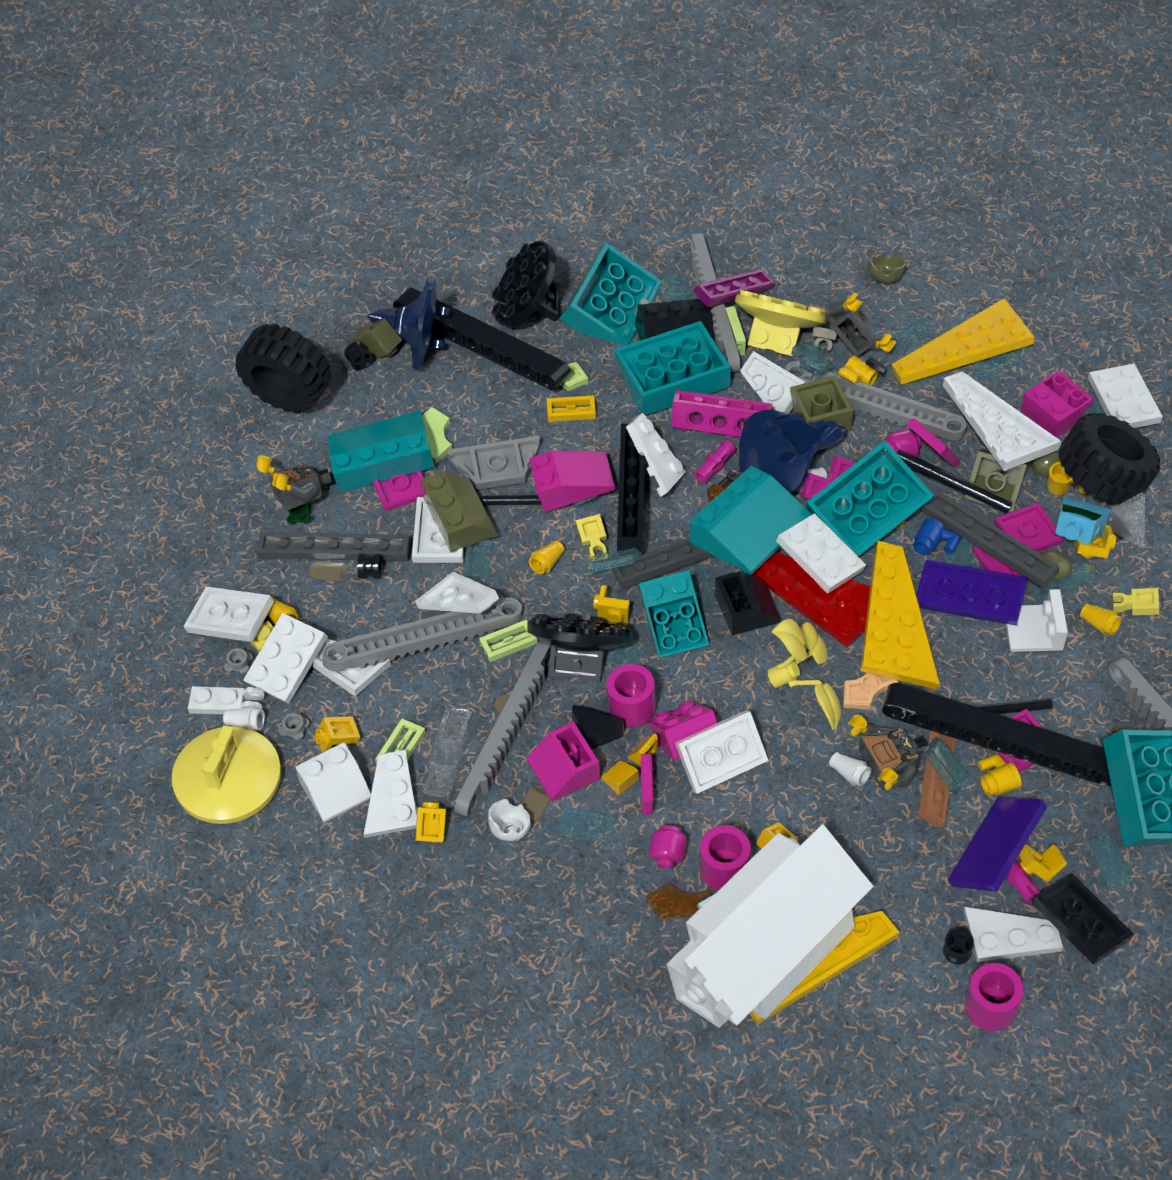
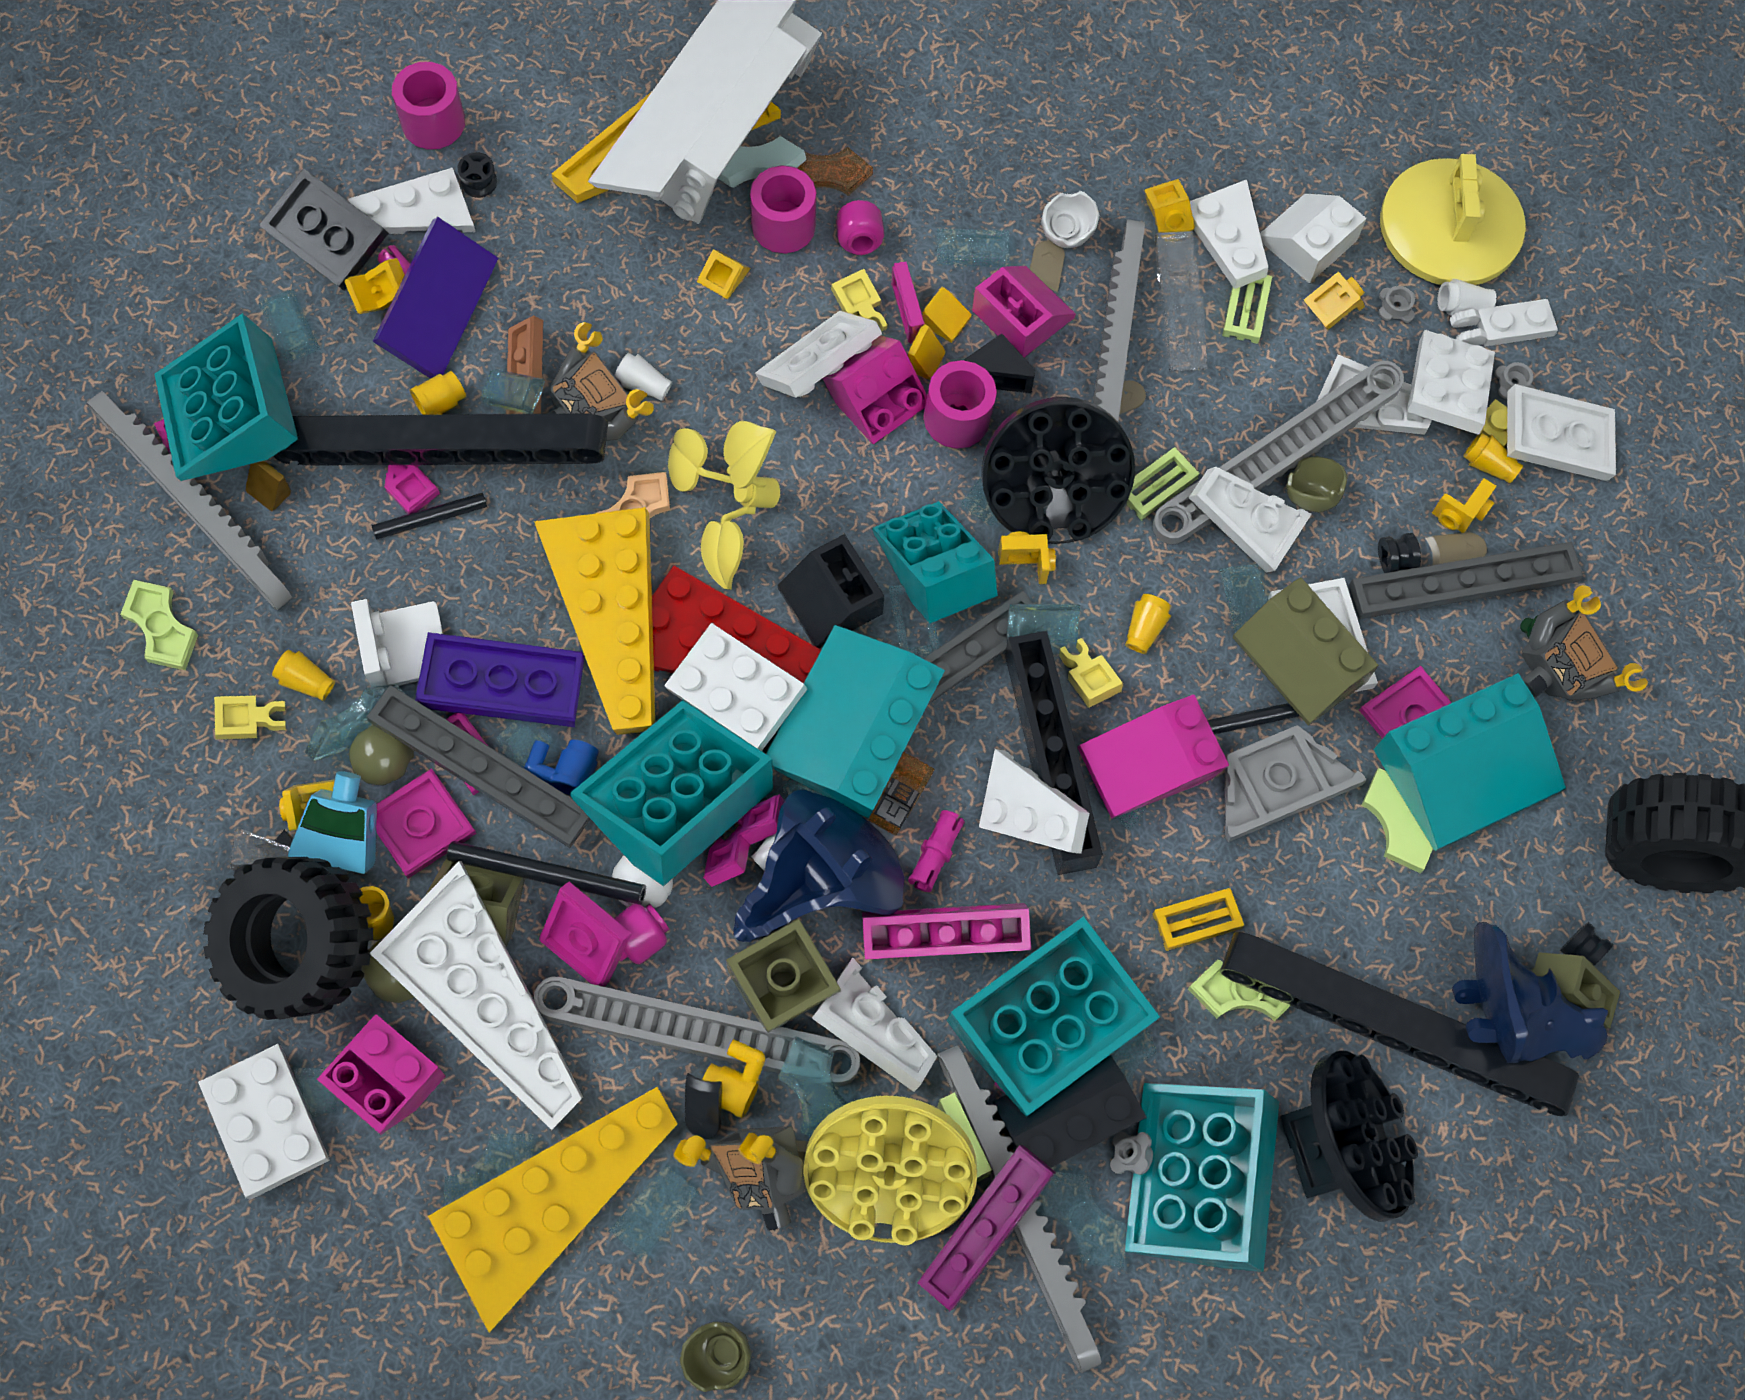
camera: 160 degrees right, 15 degrees up
(310, 583) = (1458, 516): none -> yellow bracket
(405, 608) = (1317, 484): none -> olive hair
(681, 797) = (859, 297): none -> light yellow plate

